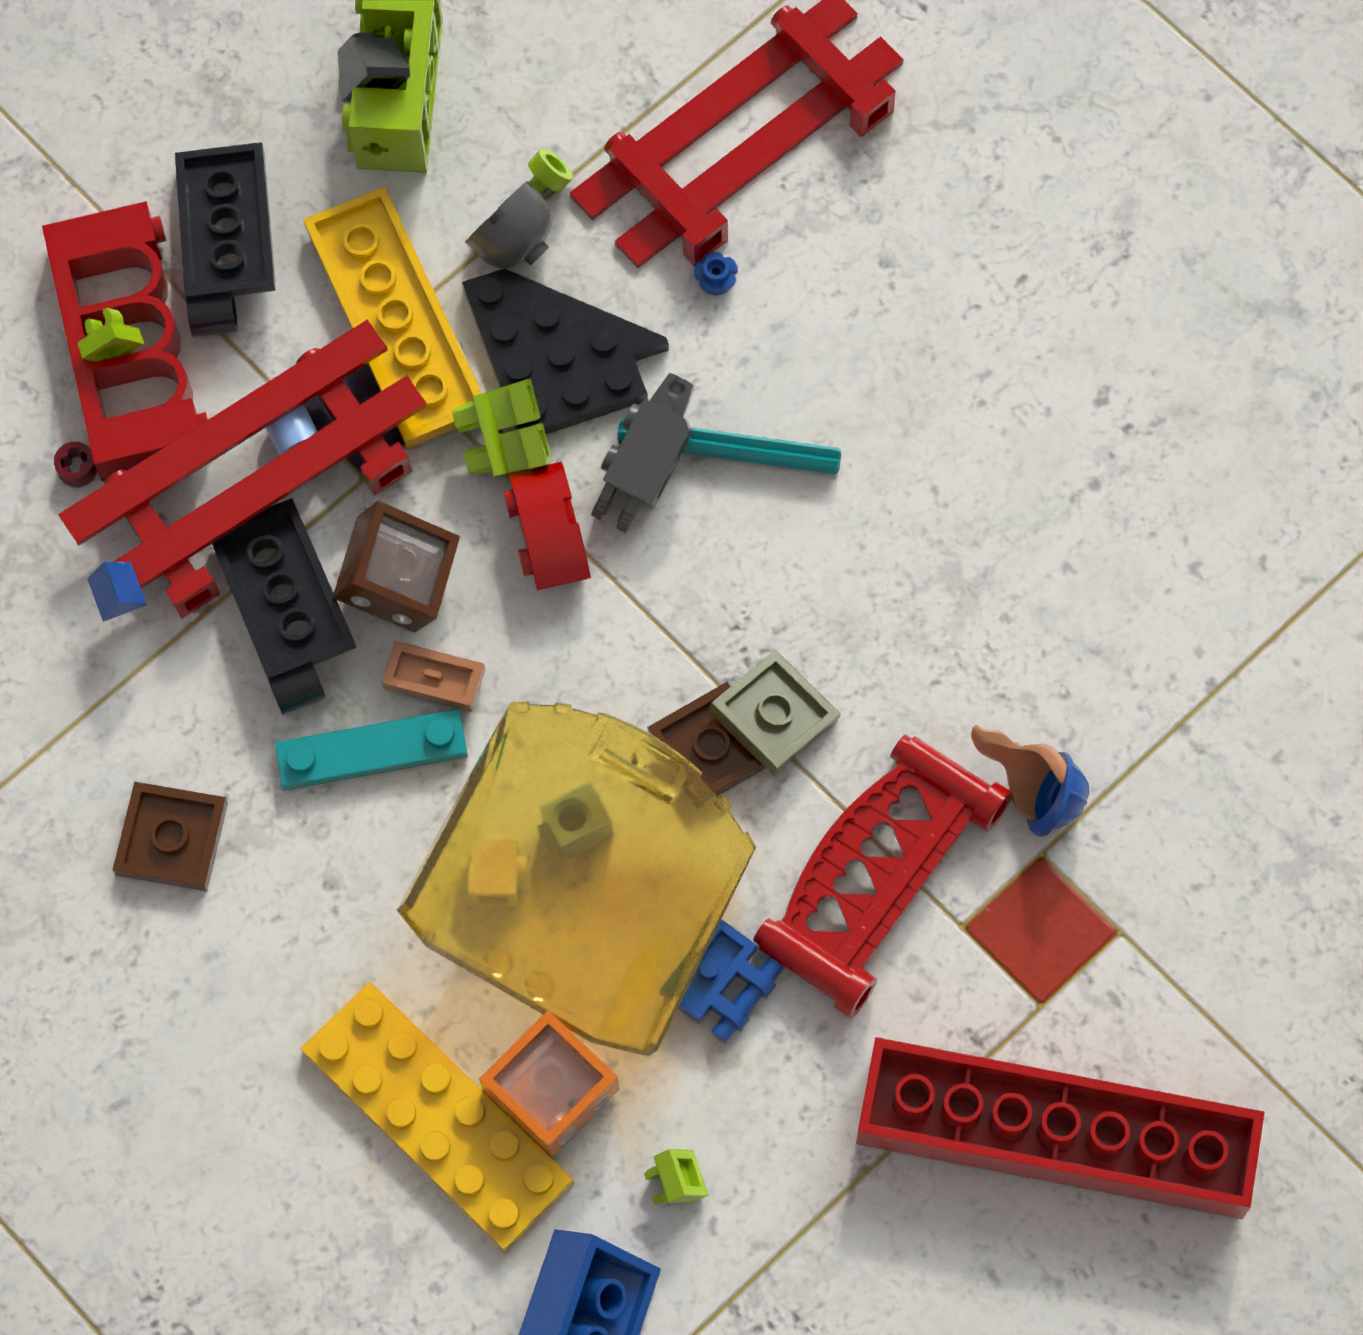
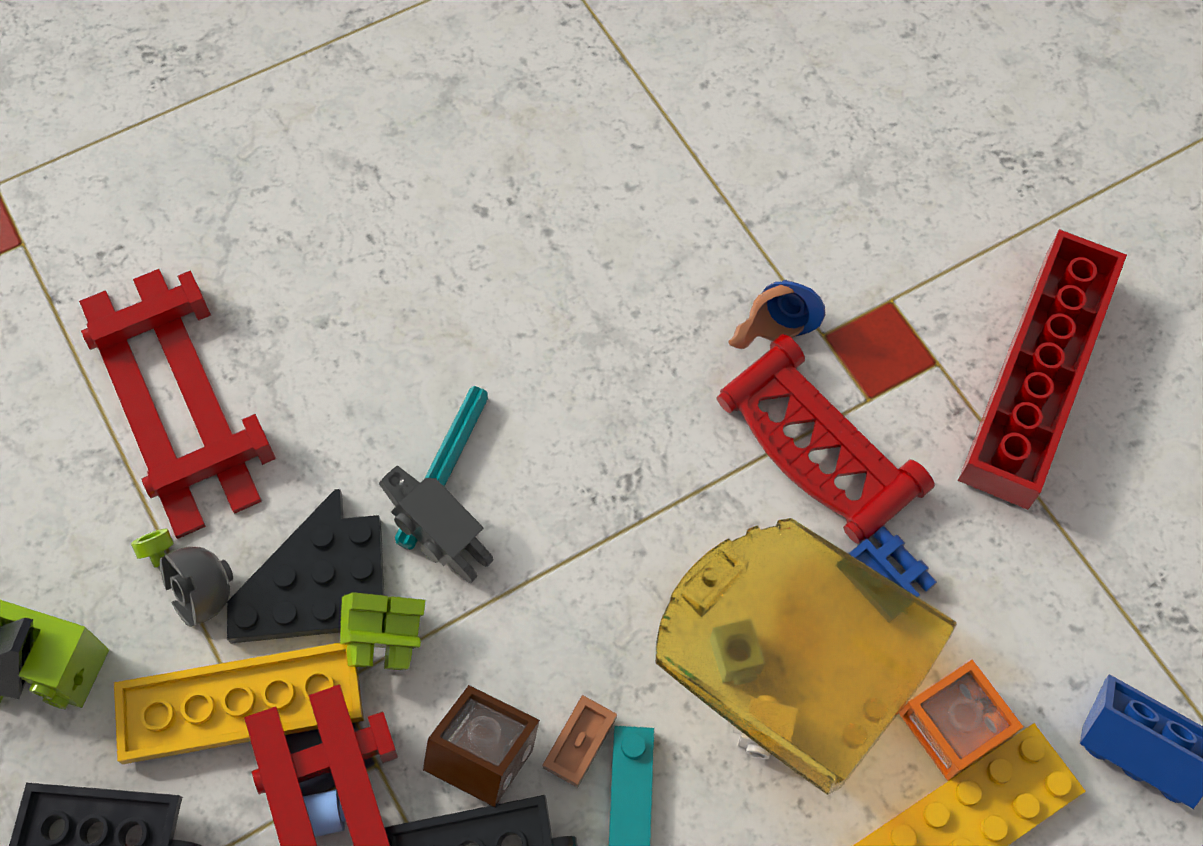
camera: 80 degrees left, 5 degrees down
(548, 525) = (489, 616): red brick -> none
(679, 1177) = (1043, 639): lime tile -> none
(707, 743) = (684, 533): reddish brown tile -> none
(713, 283) = (294, 449): blue plate -> none
(774, 712) = (678, 483): tile -> none

